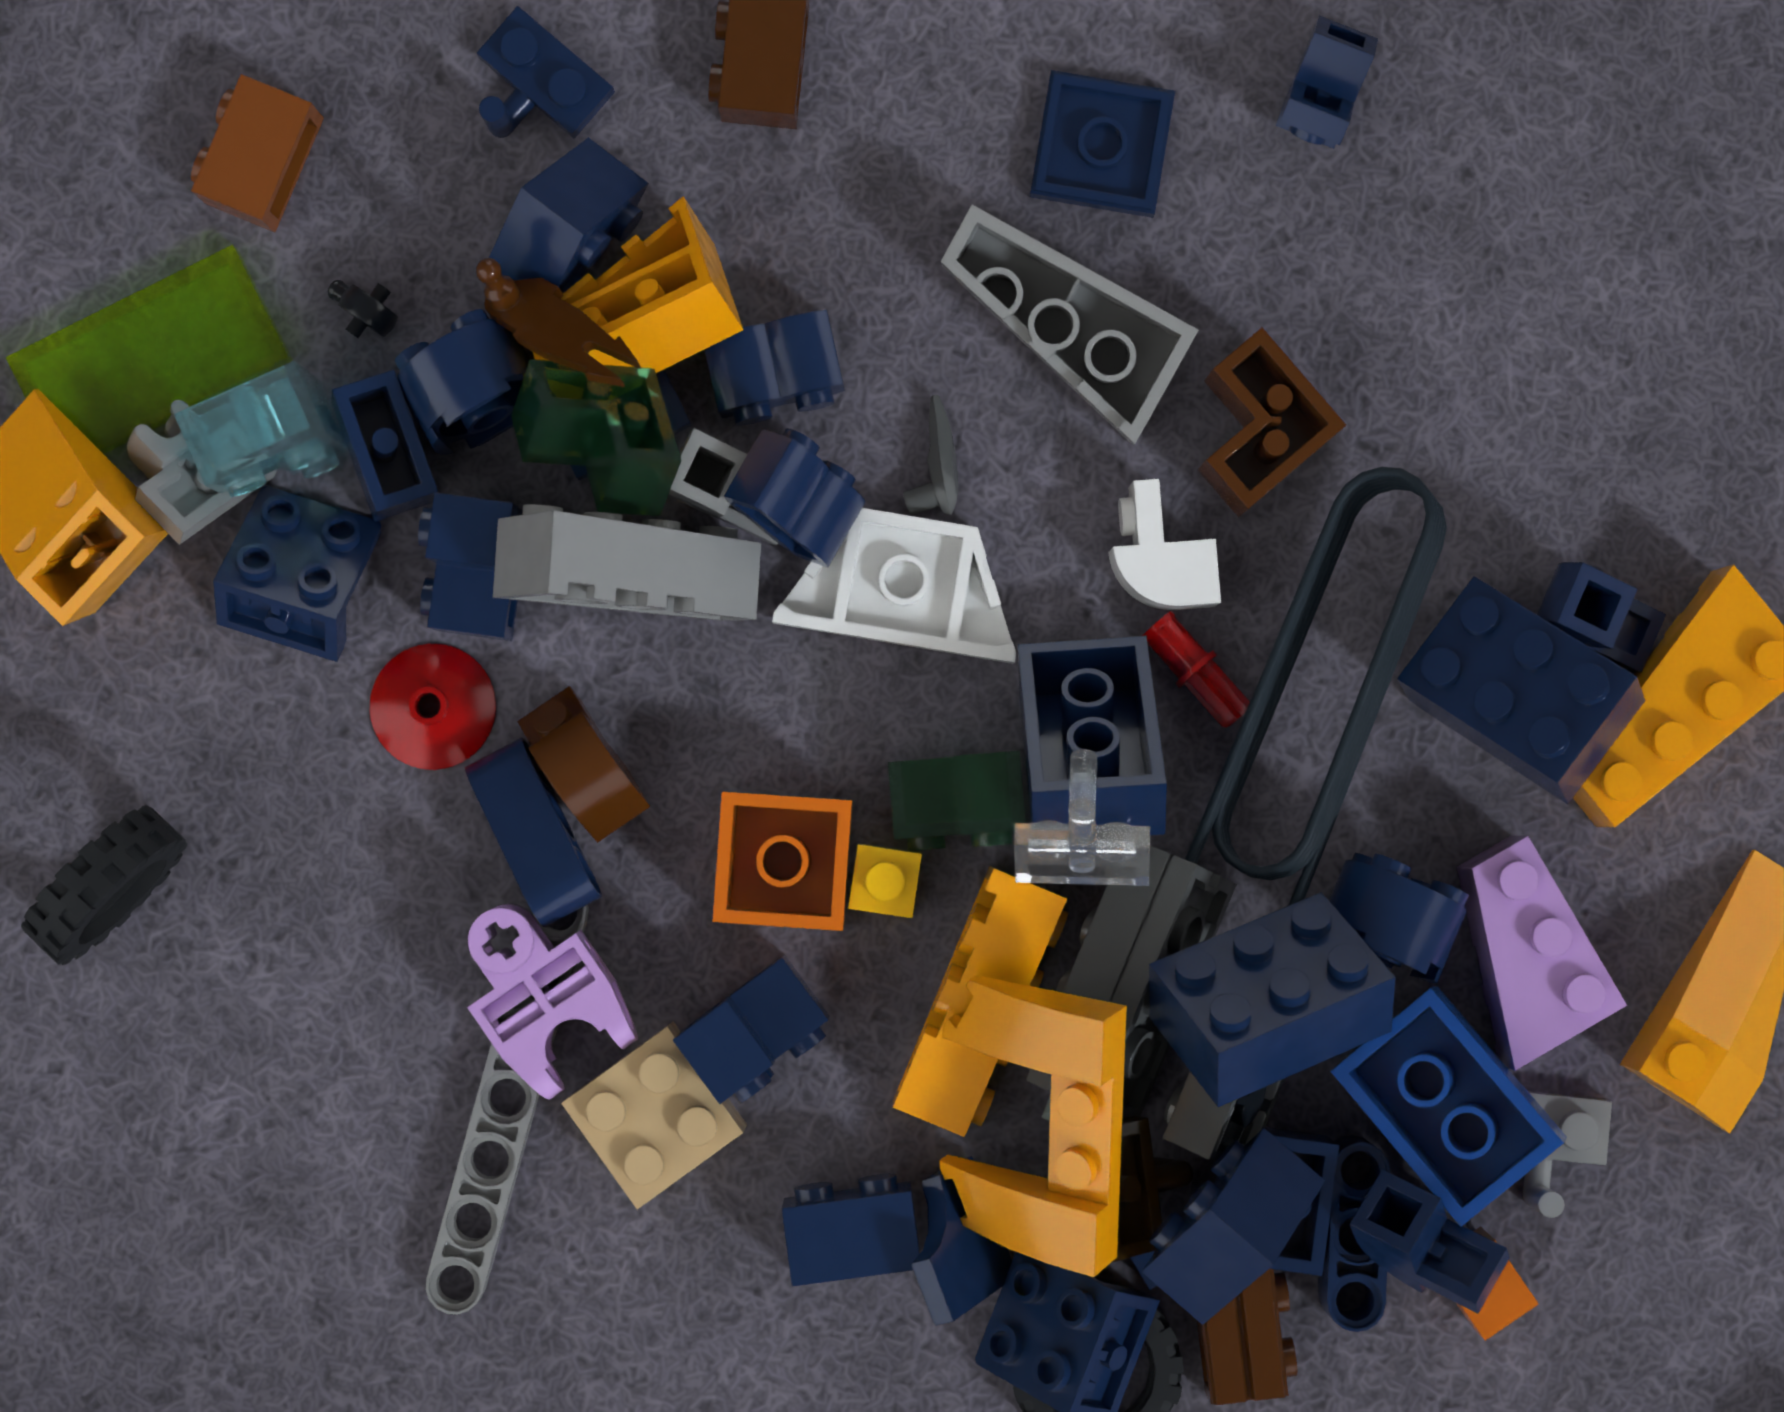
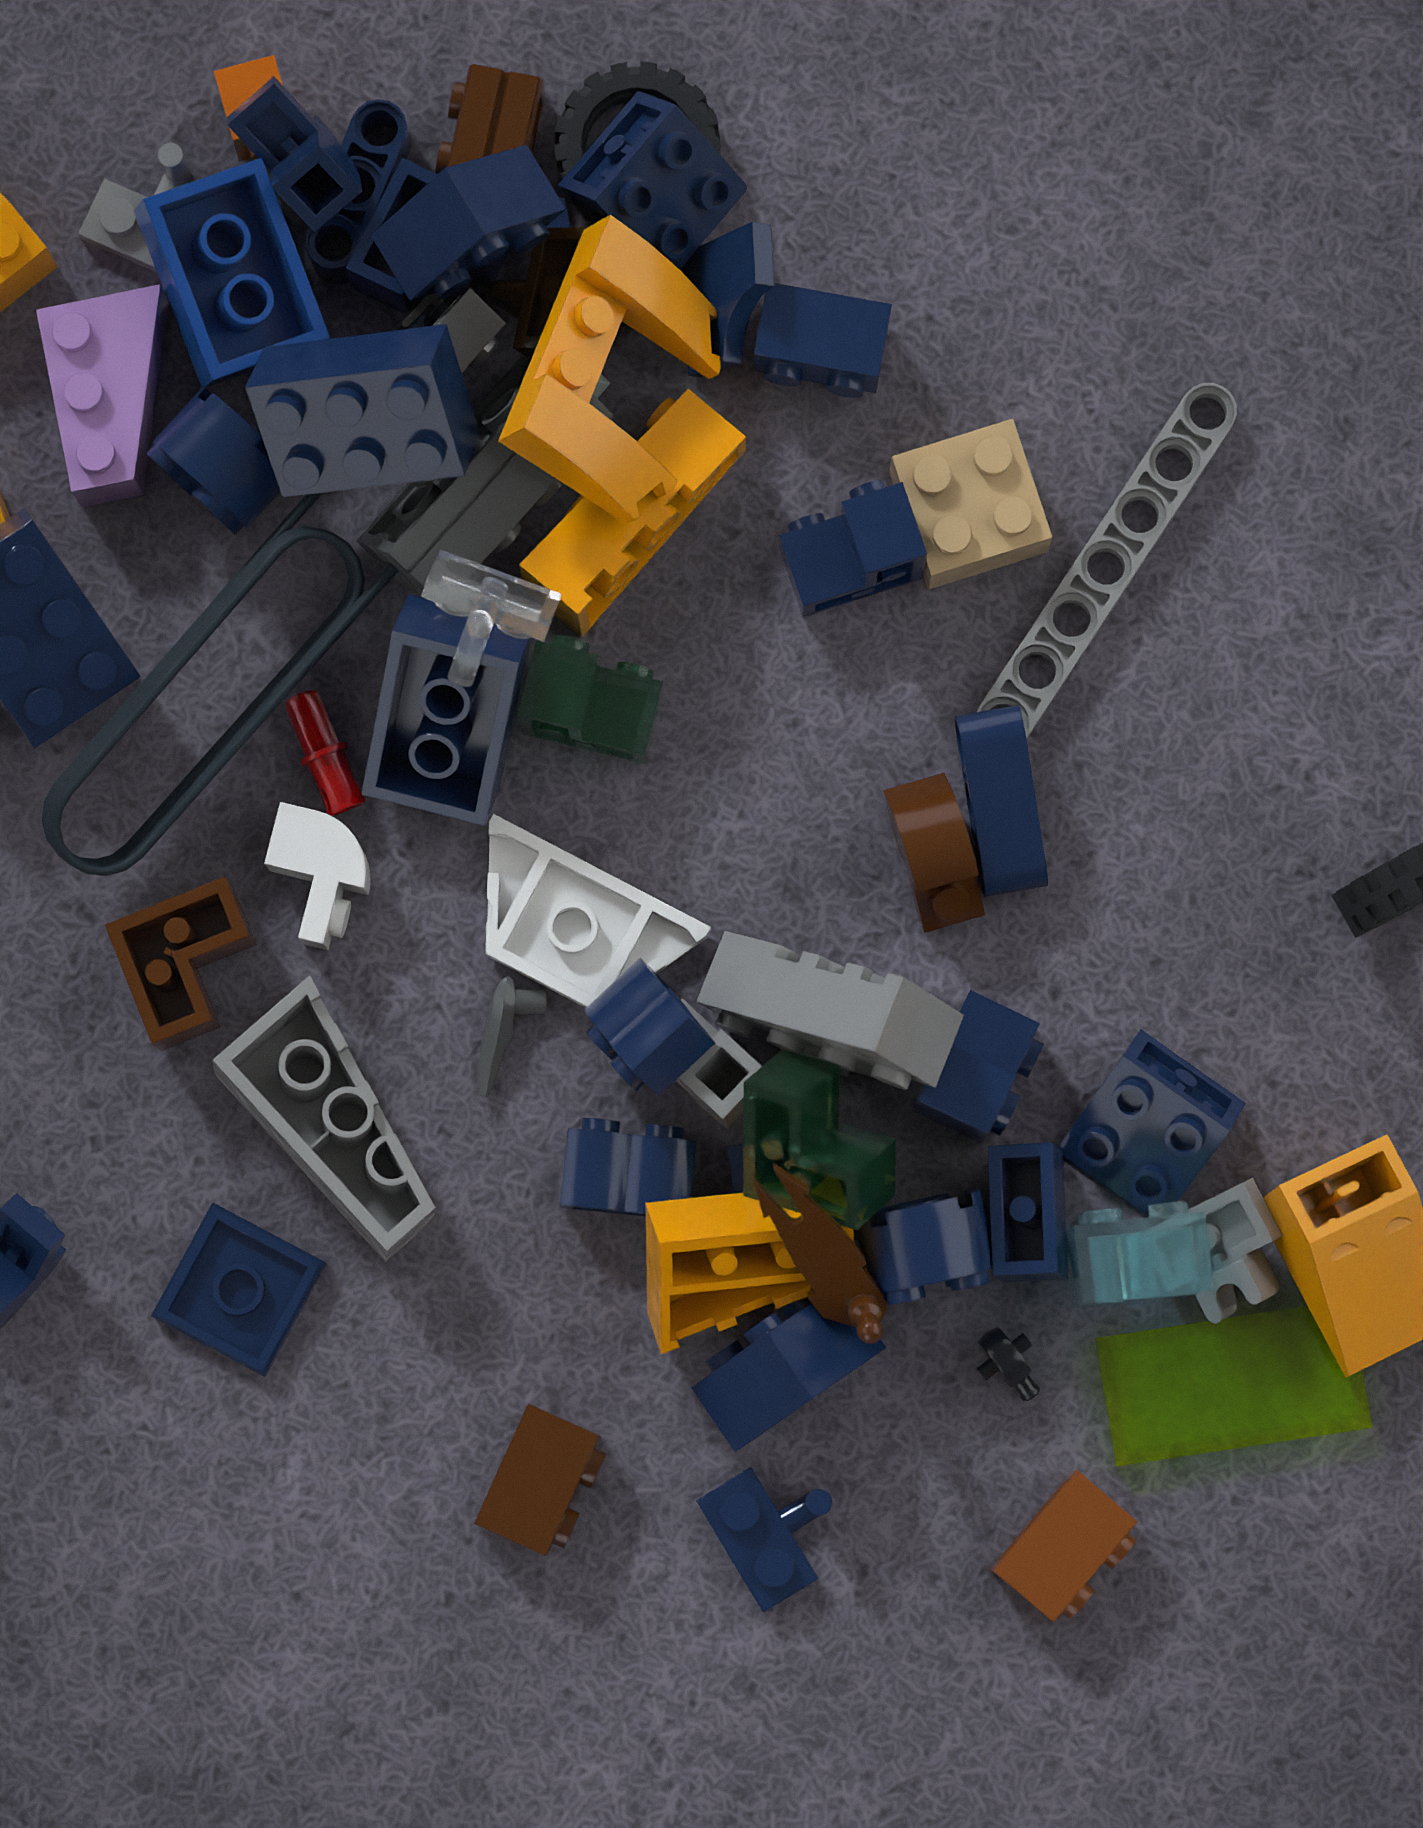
camera: 160 degrees left, 5 degrees down
(464, 713) = (1055, 990): red dish -> none
(526, 1036) = (1040, 647): lavender piece -> none
(782, 861) = (772, 696): orange brick -> none
(885, 880) = (684, 649): yellow brick -> none

